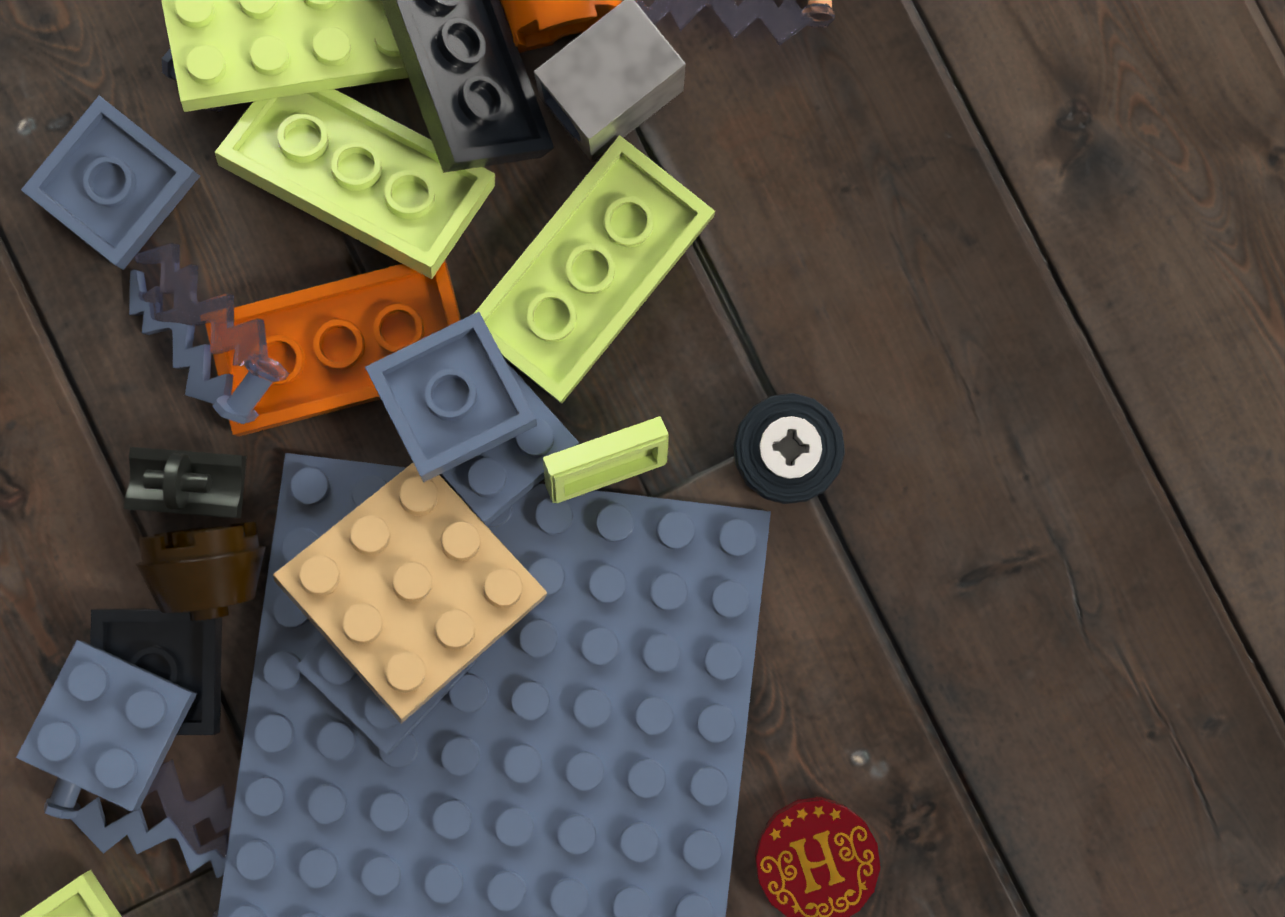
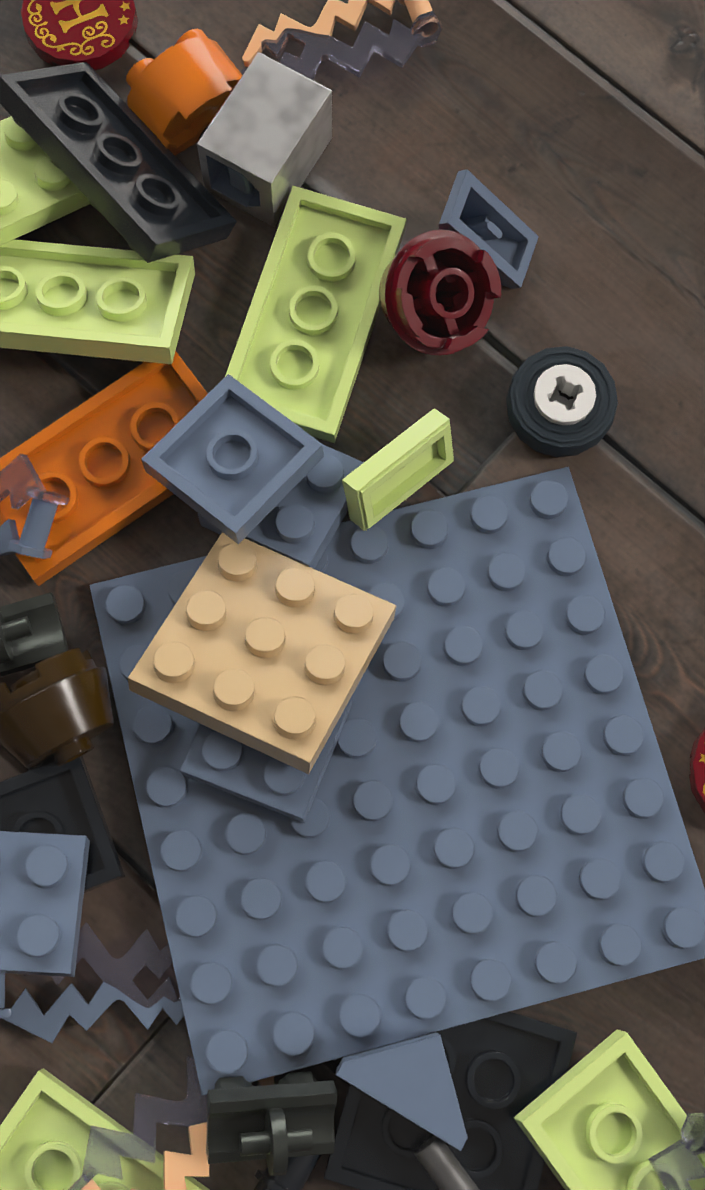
camera: 25 degrees left, 10 degrees down
(710, 305) = (439, 292): none -> dark red cone
(784, 256) = (491, 226): none -> sand blue slope

